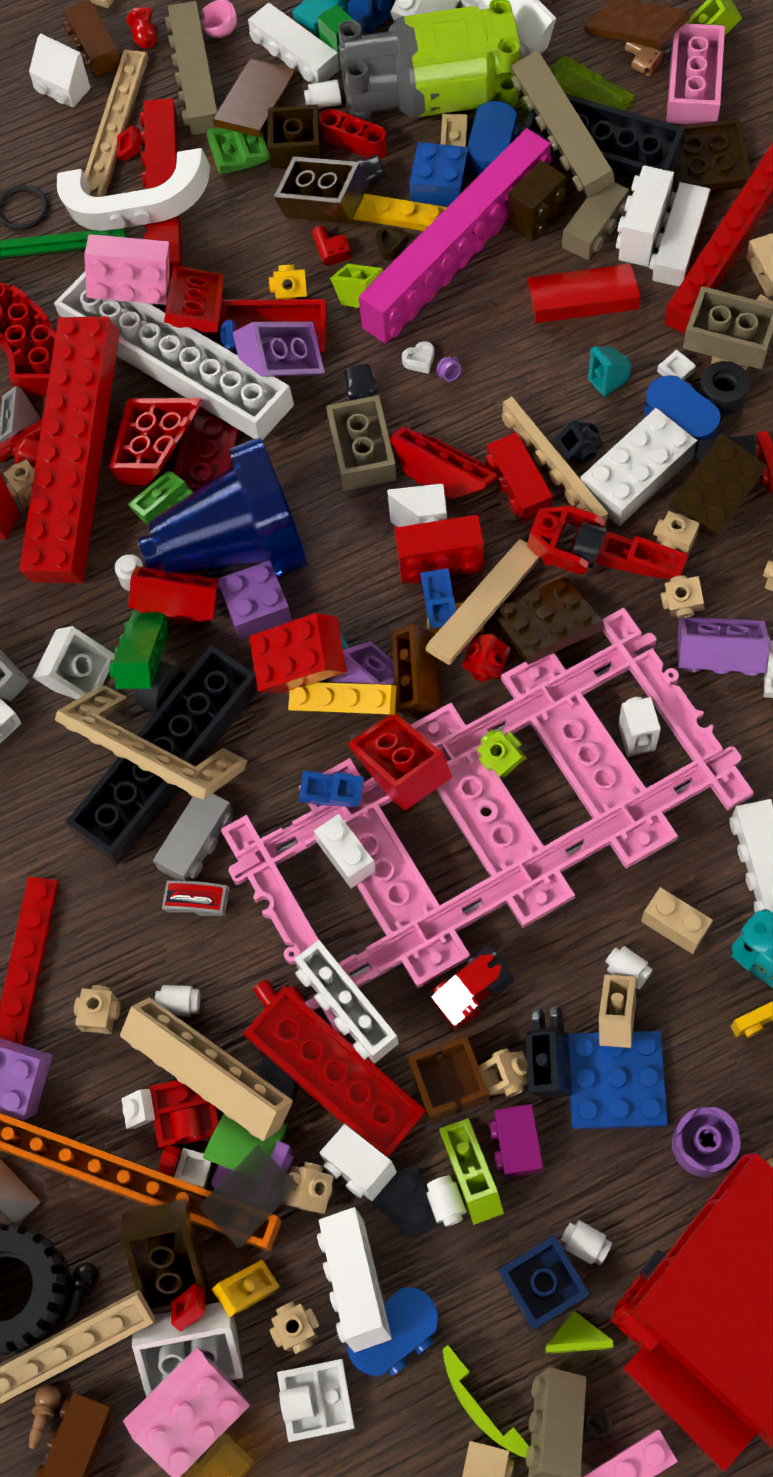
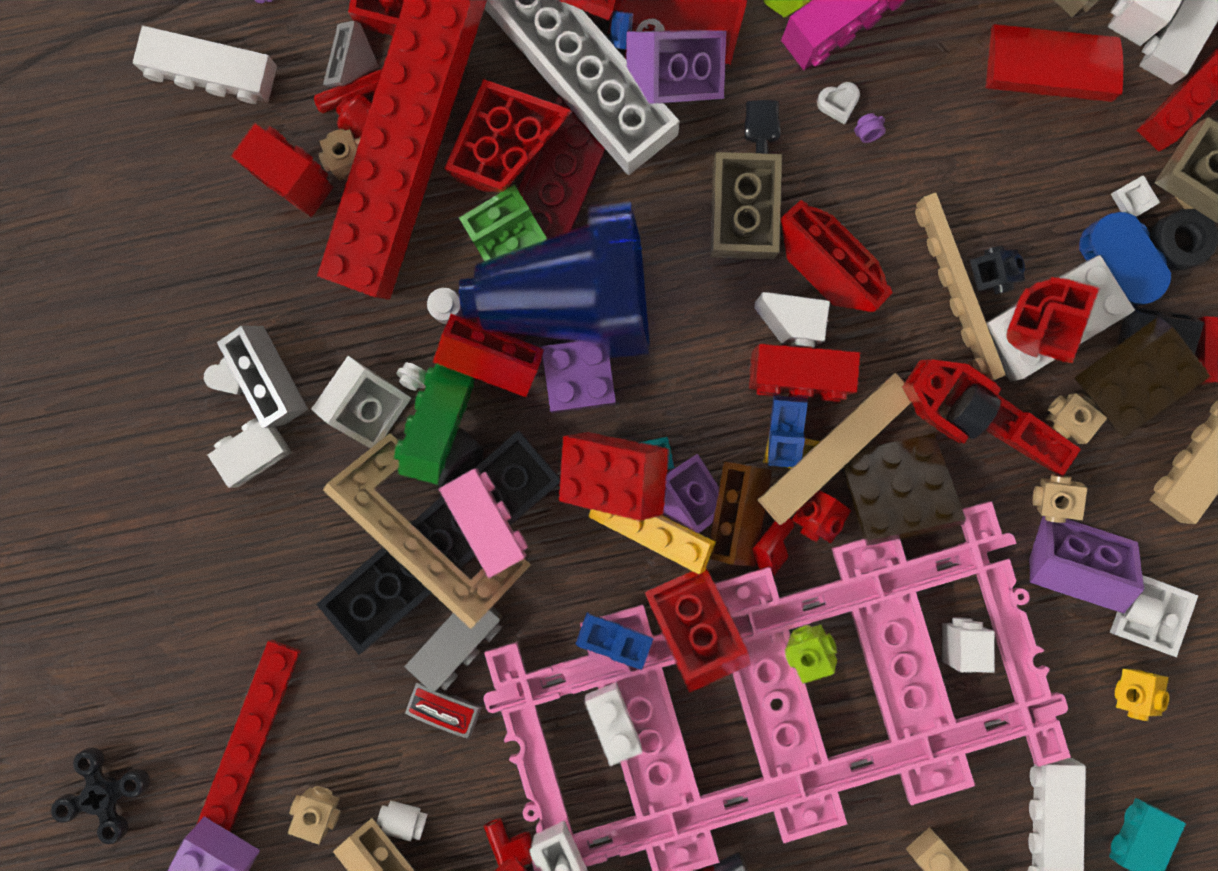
camera: 10 degrees right, 20 degrees up
(111, 634) = (411, 376): none -> white plate
(197, 715) = (484, 521): none -> bright pink brick
(450, 690) = (770, 549): none -> red piece
(518, 477) = (915, 295): red brick -> none
(608, 369) = (1057, 182): teal slope -> none
(624, 452) = (1052, 318): none -> red brick

